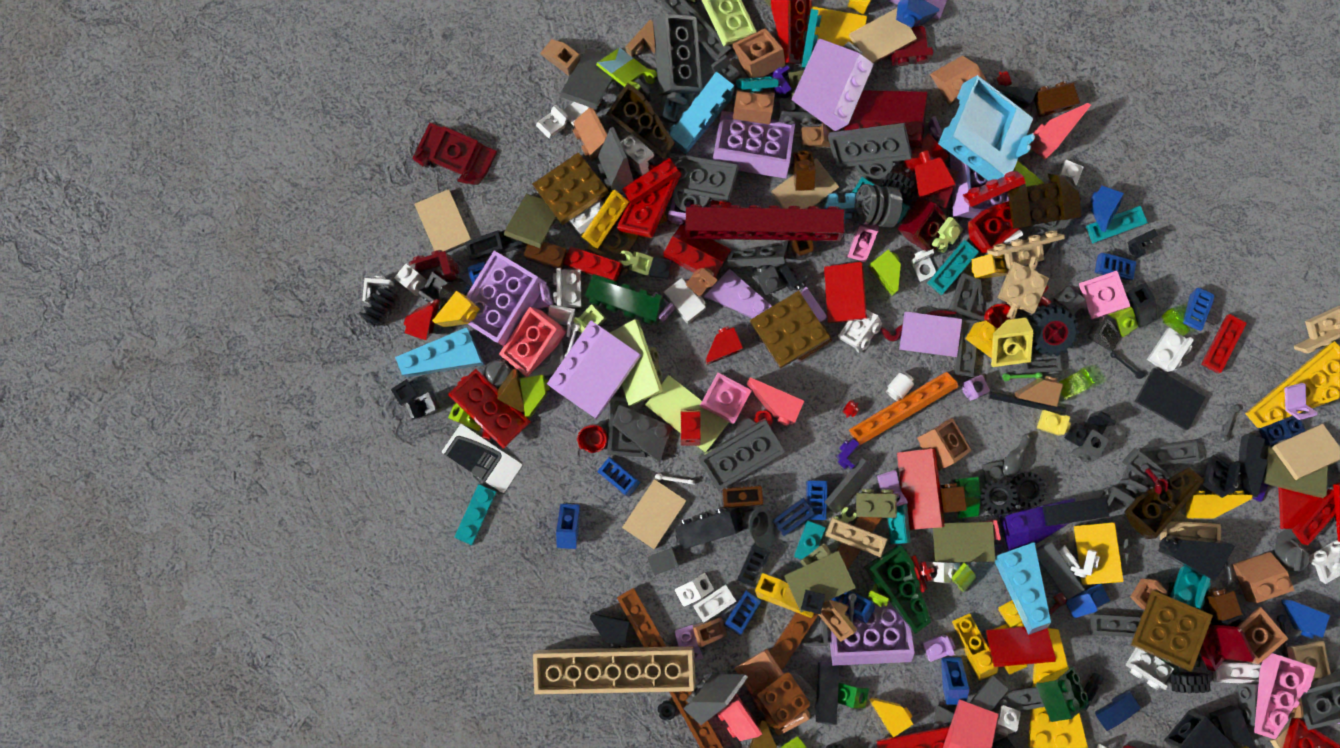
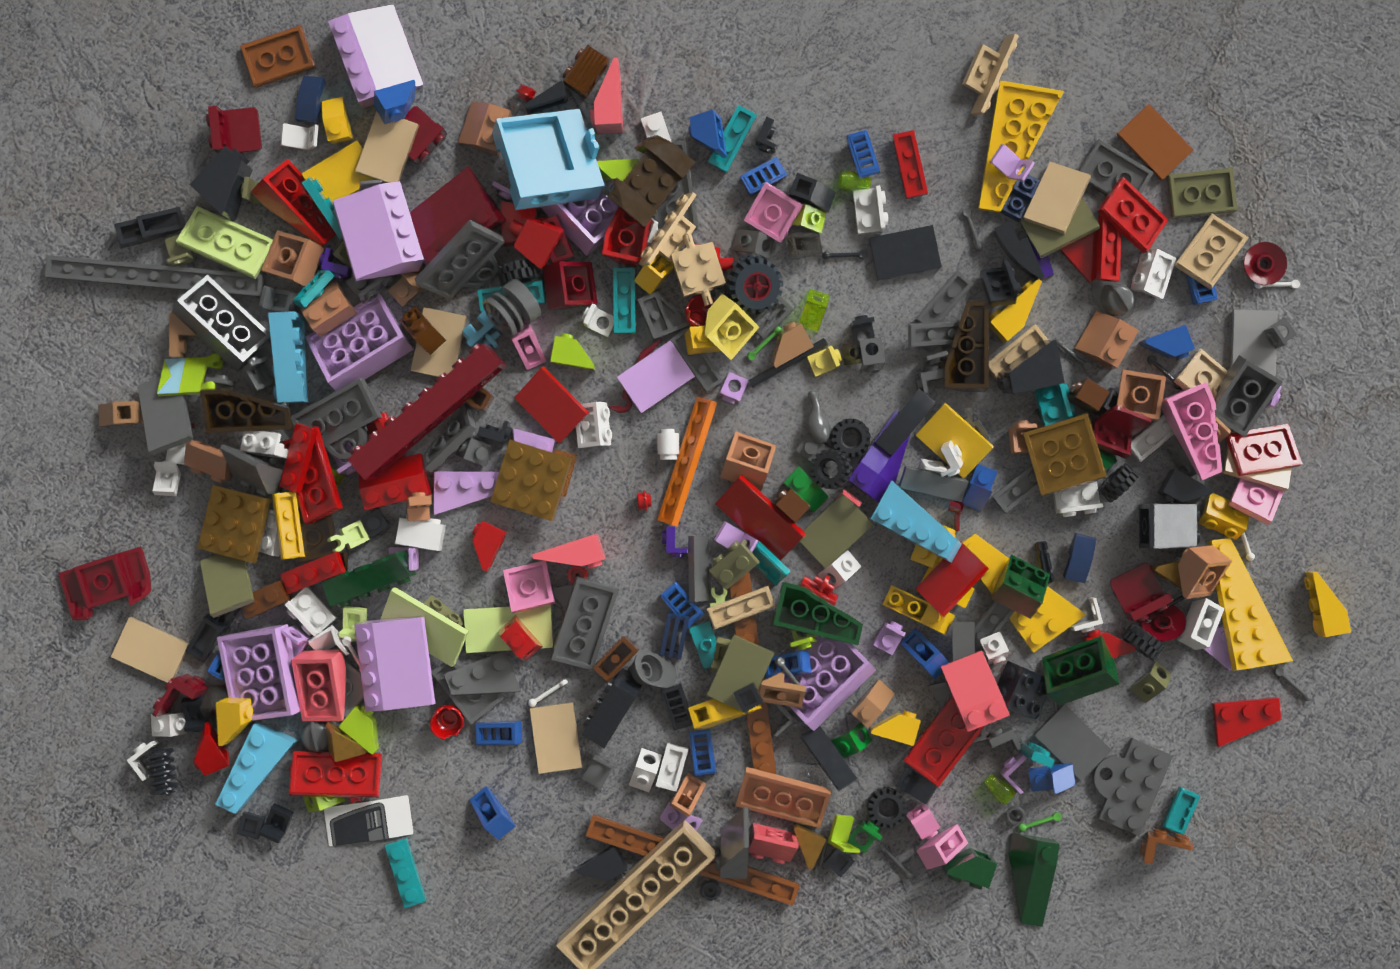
camera: 45 degrees left, 5 degrees up
(781, 701) = (794, 799): dark orange bracket -> none
(887, 682) = (872, 703): none -> medium nougat slope
(948, 234) = (595, 273): yellowish green plate -> none
(963, 577) = (859, 561): lime slope -> none
(994, 188) = (596, 207): red plate -> none
(1159, 483) = (952, 339): dark red hand -> none

